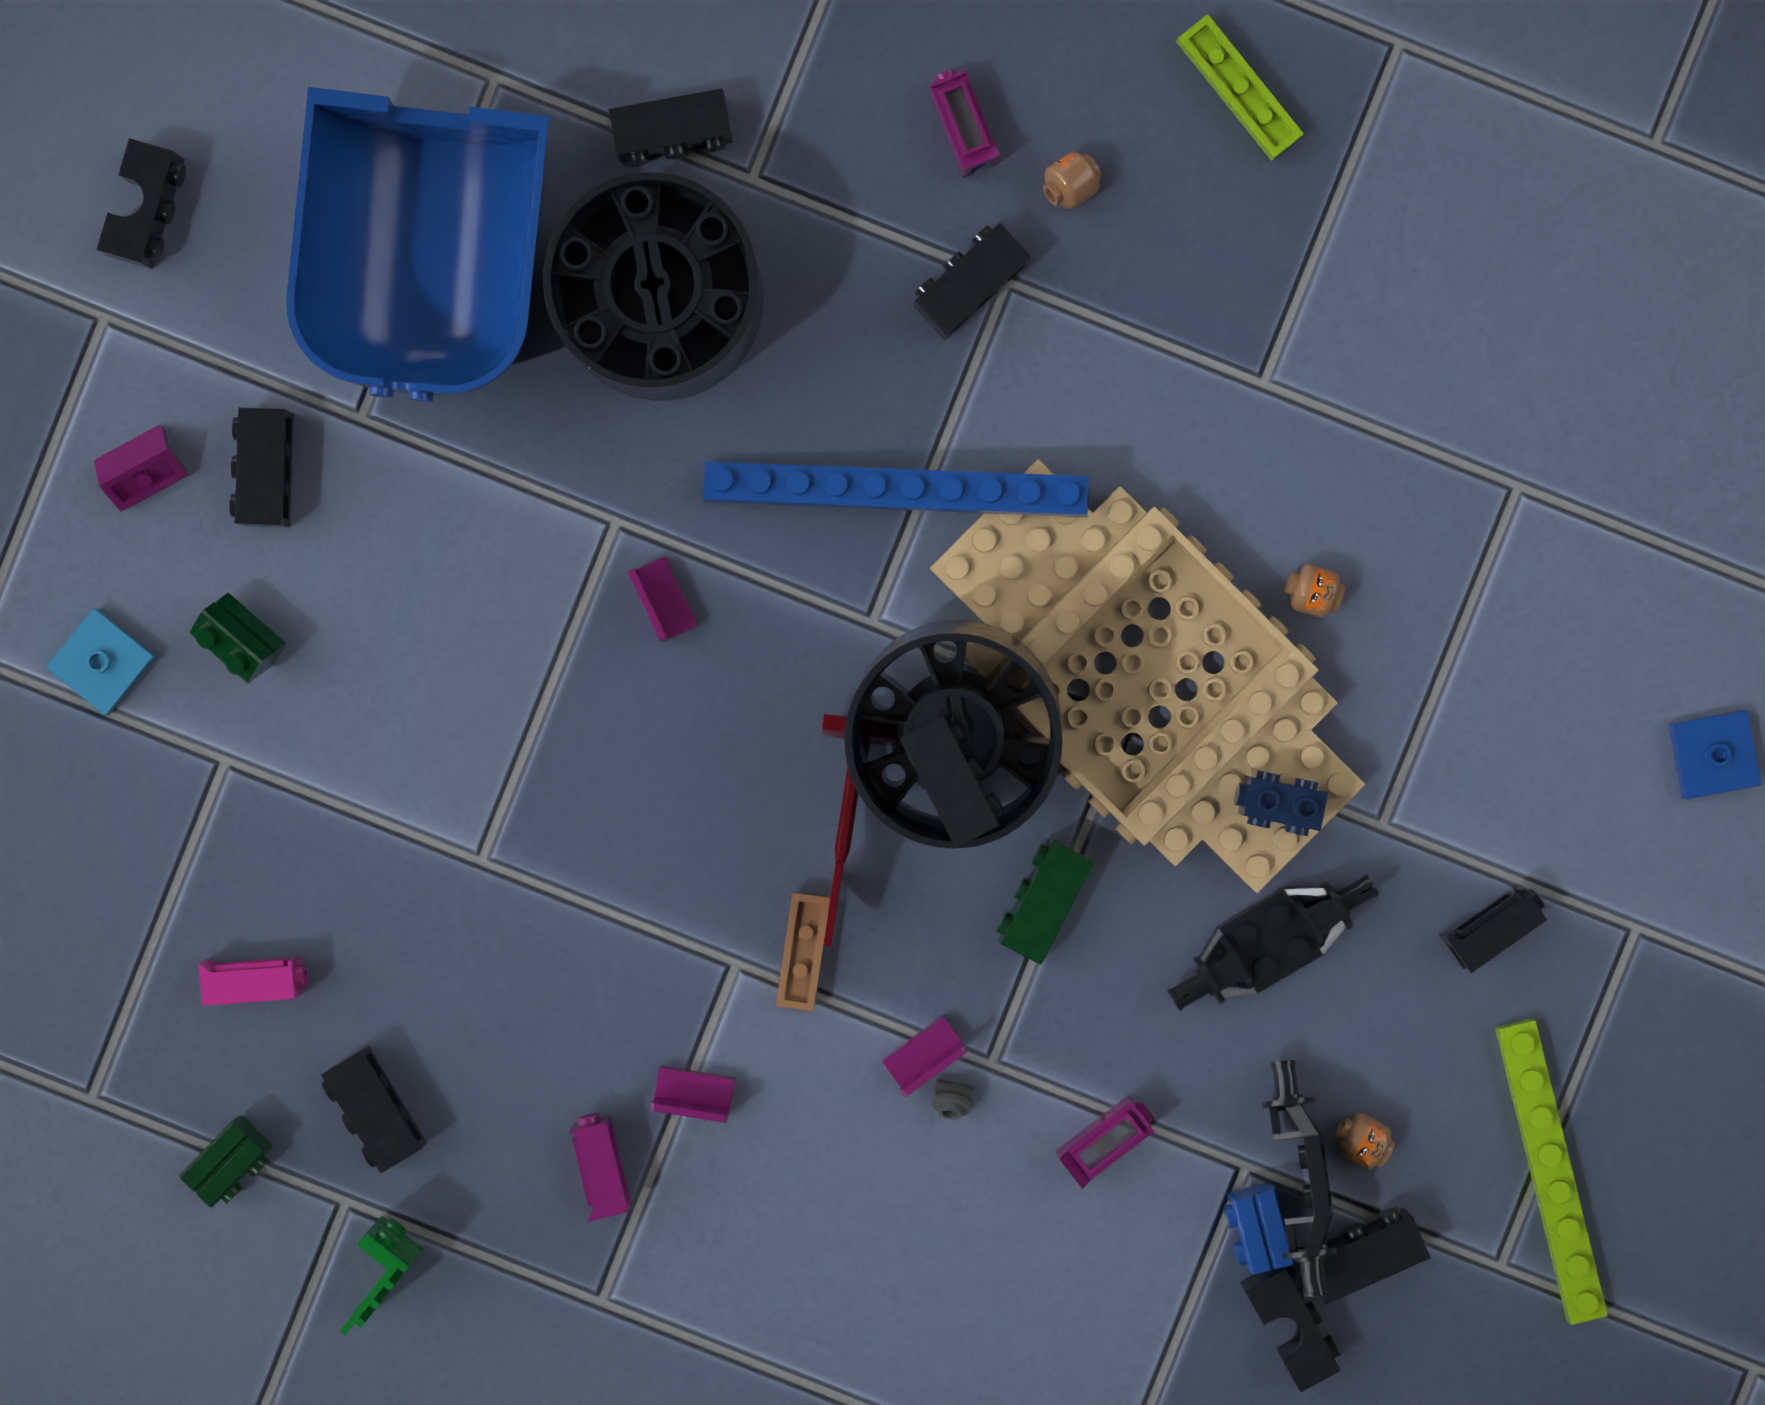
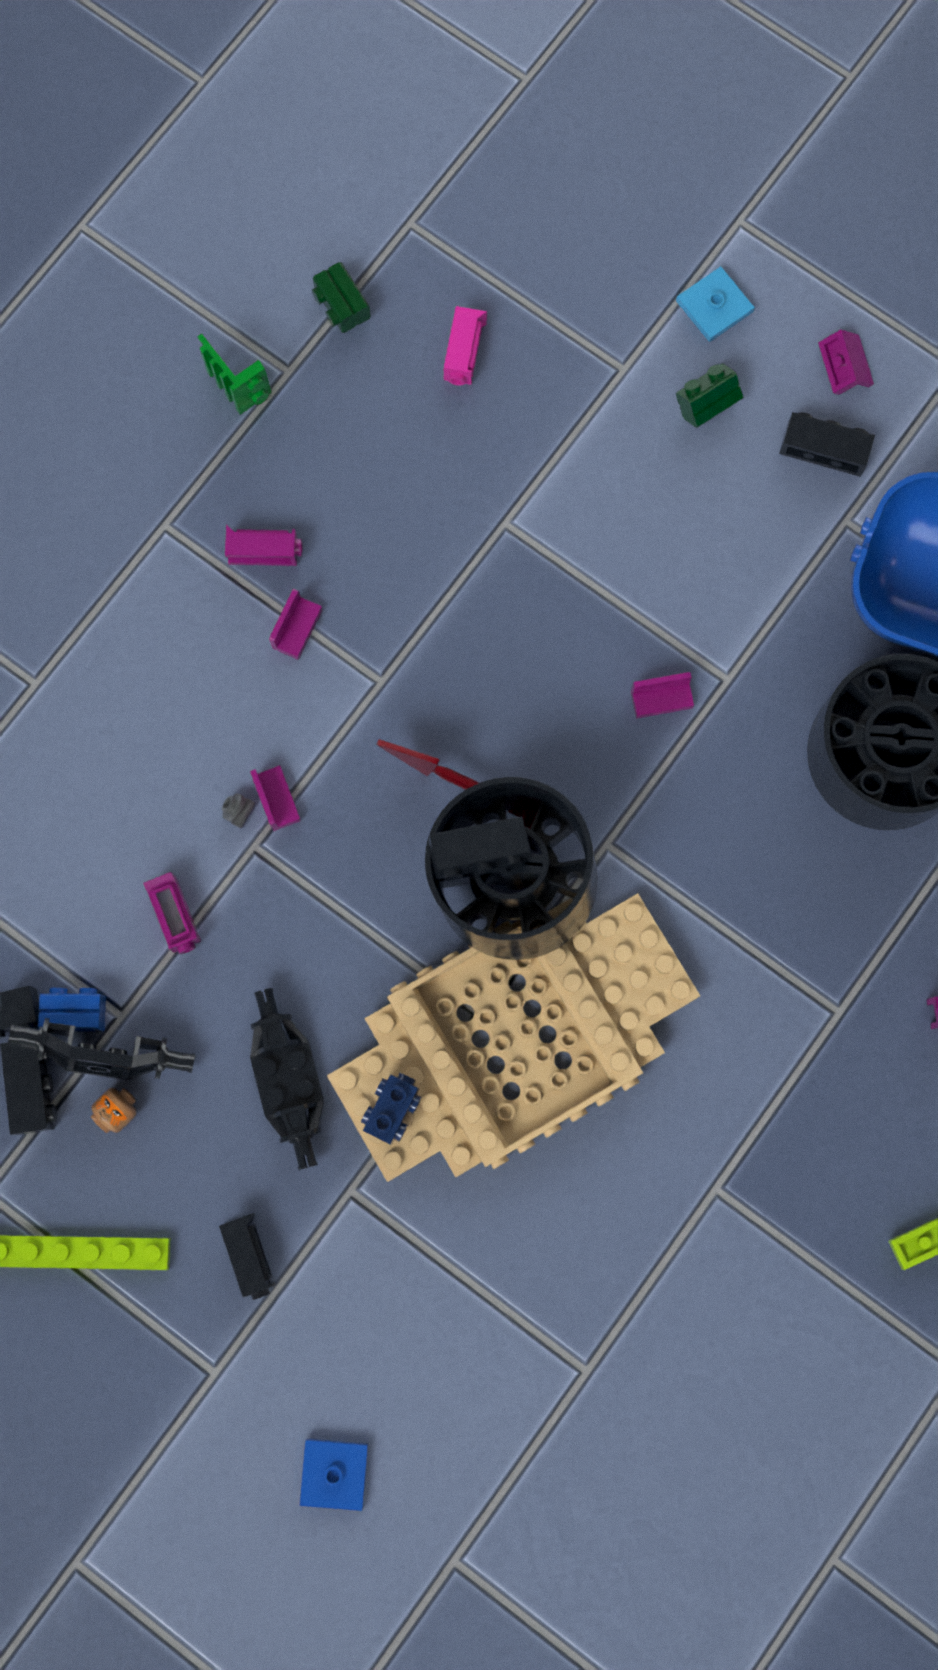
camera: 105 degrees right, 10 degrees down
(373, 1110) = (349, 403): black brick -> none
(803, 951) = (373, 726): medium nougat plate -> none
(896, 489) = (702, 886): blue plate -> none
(970, 280) = (847, 982): black brick -> none
(1044, 901) = (365, 914): dark green brick -> none
(1072, 180) = (907, 1079): medium nougat head -> none
(1315, 590) = (546, 1184): medium nougat head -> none

